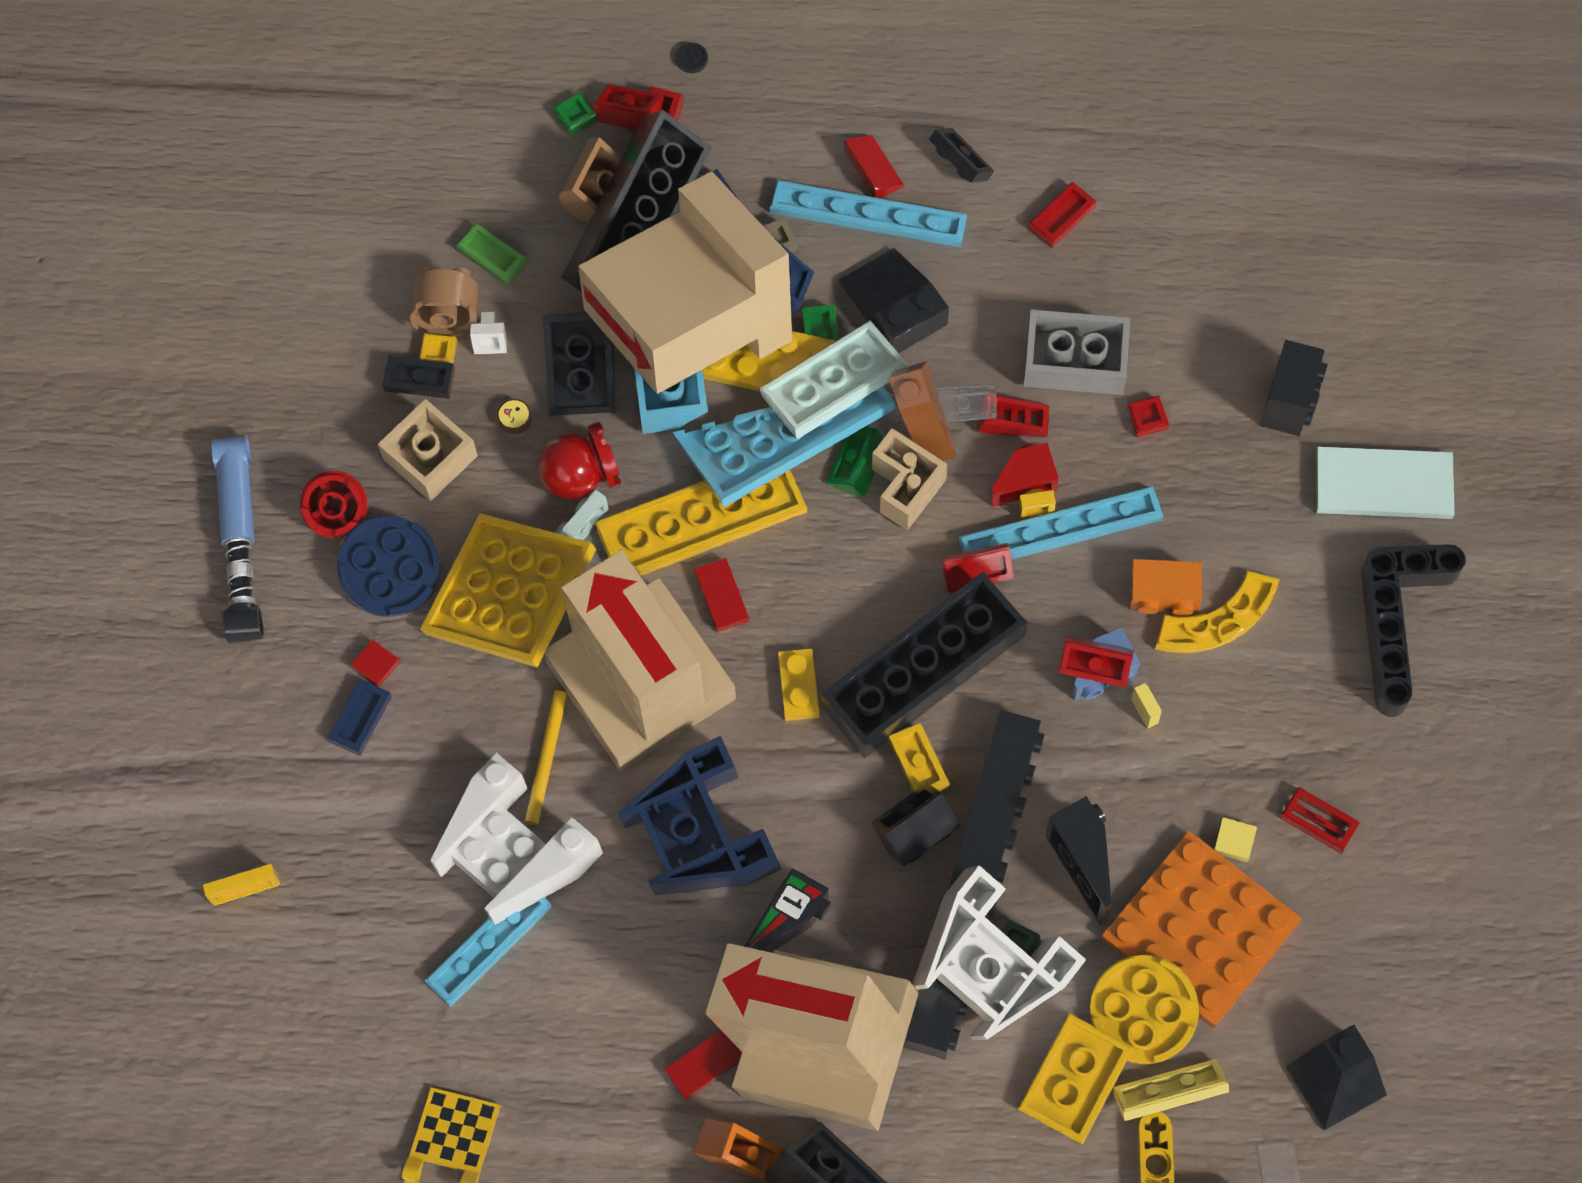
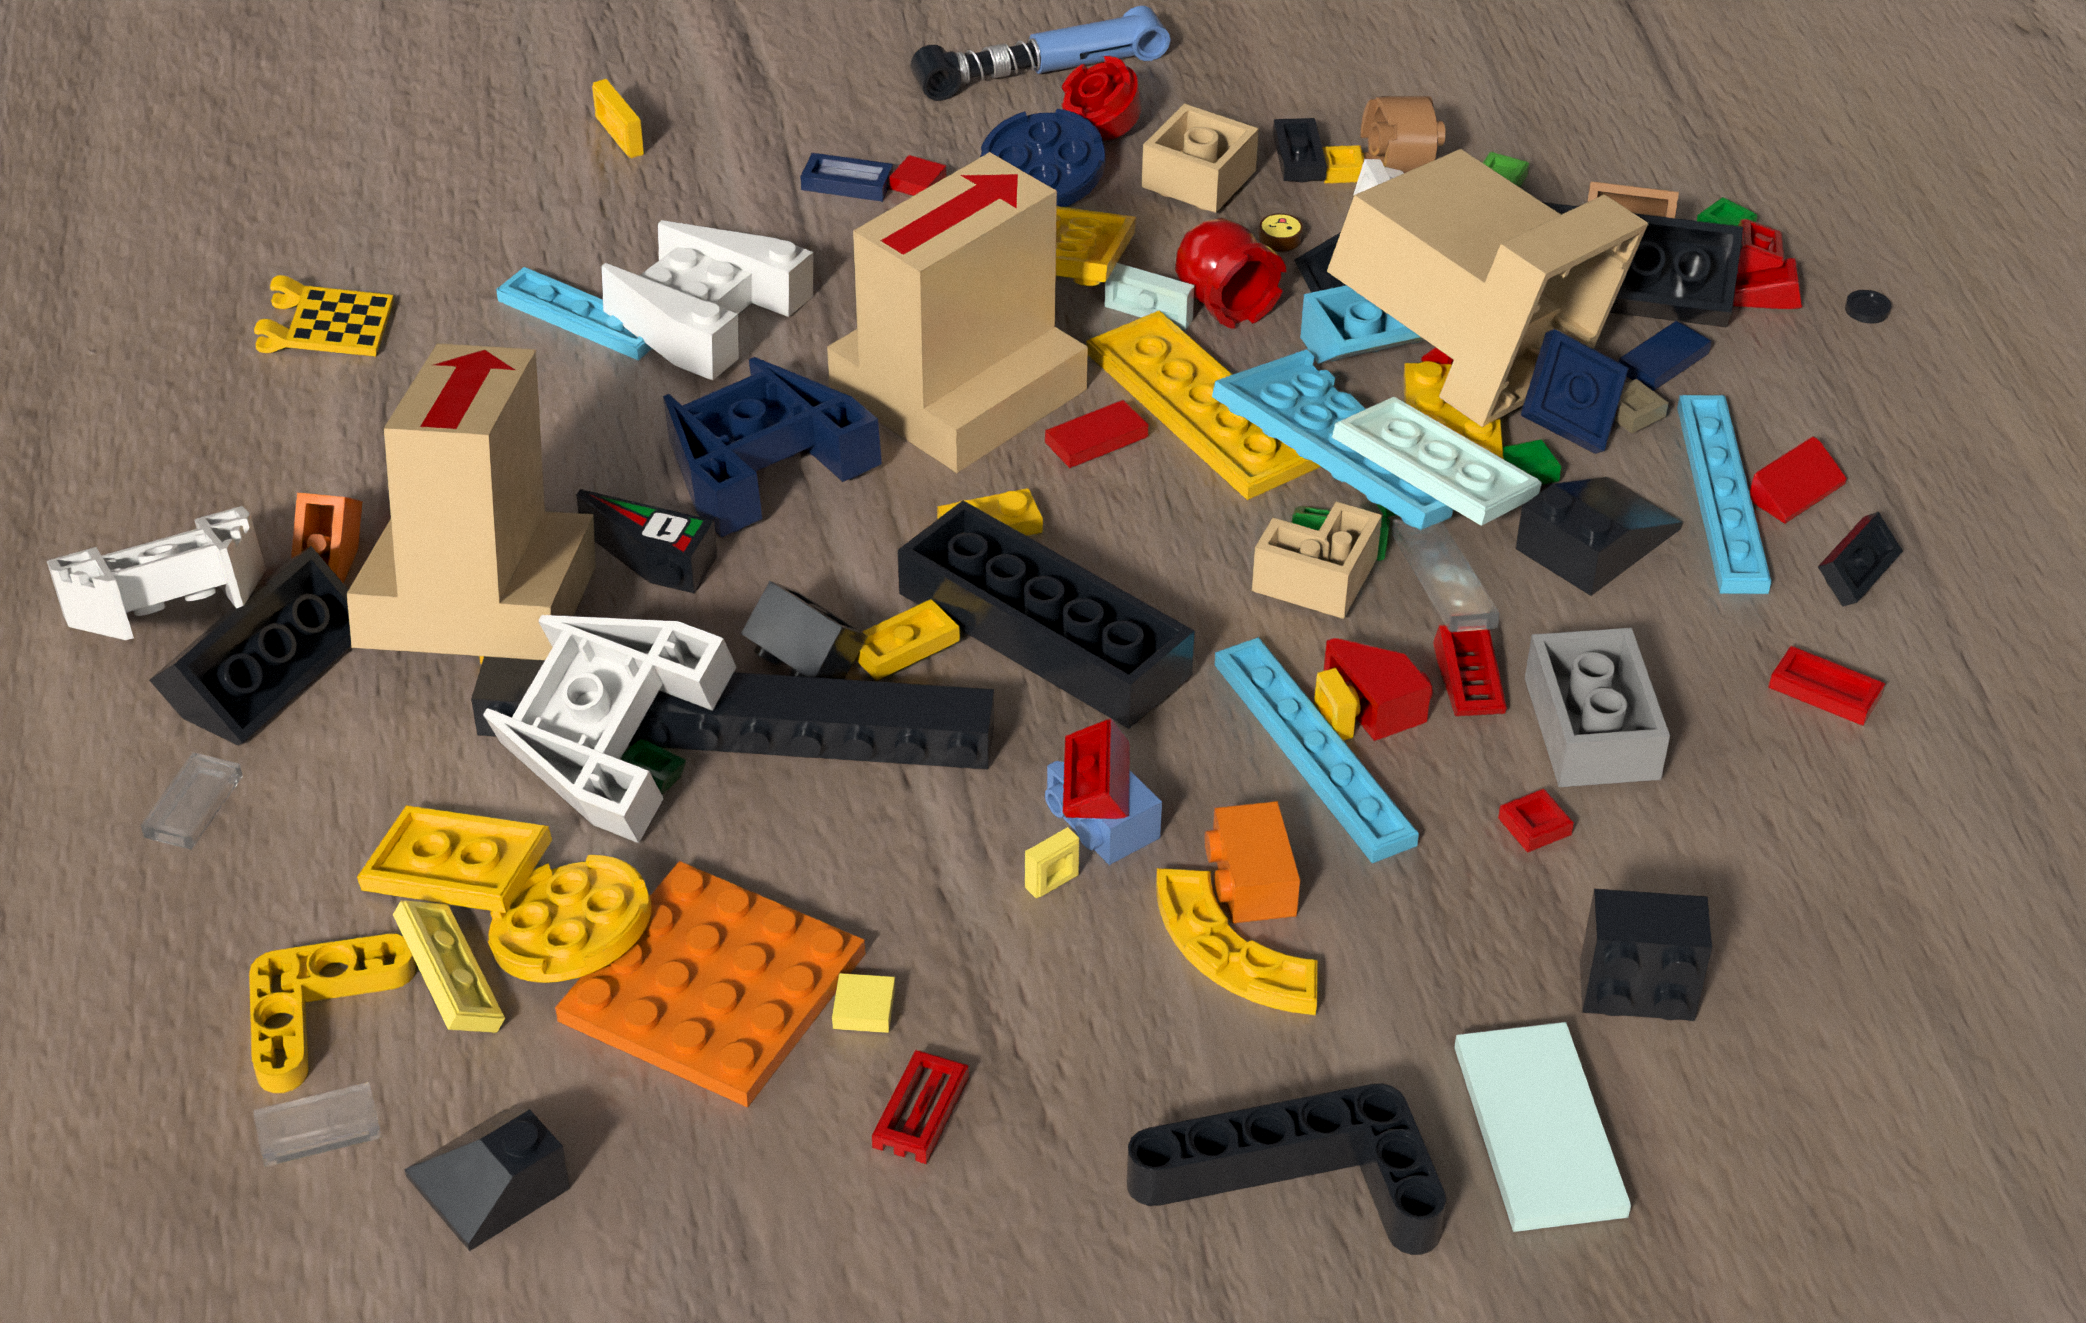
camera: 75 degrees right, 25 degrees down
(546, 758) = (799, 322): yellow bar -> none
(922, 409) = (1423, 534): dark orange slope -> none
(964, 567) = (1219, 660): red tile -> none
(1081, 845) = (784, 806): black slope -> none

